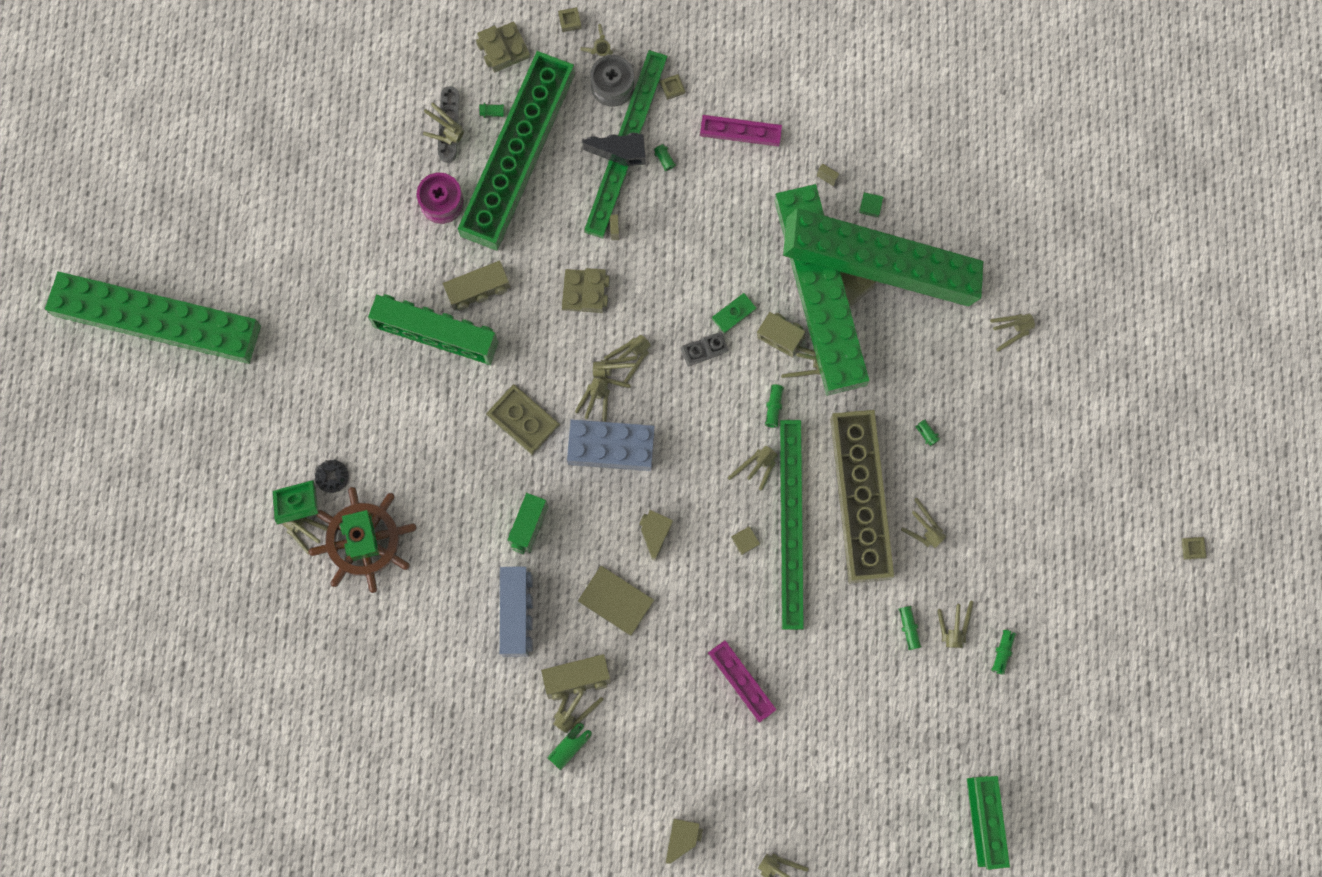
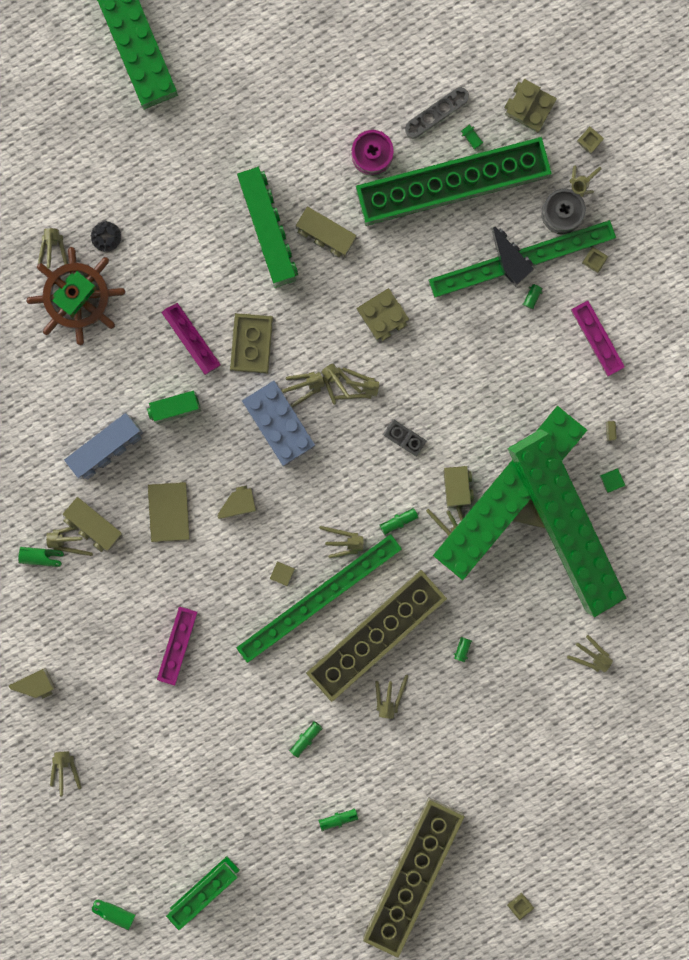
camera: 55 degrees right, 10 degrees up
(295, 502) = (66, 226): green tile -> none
(452, 131) = (430, 122): olive plant -> none
(478, 467) = (191, 338): none -> magenta plate
(614, 227) = (448, 300): olive tile -> none
(734, 313) = (448, 439): green plate -> none
(955, 638) = (322, 777): olive plant -> none
(1104, 622) = (413, 877): none -> olive brick

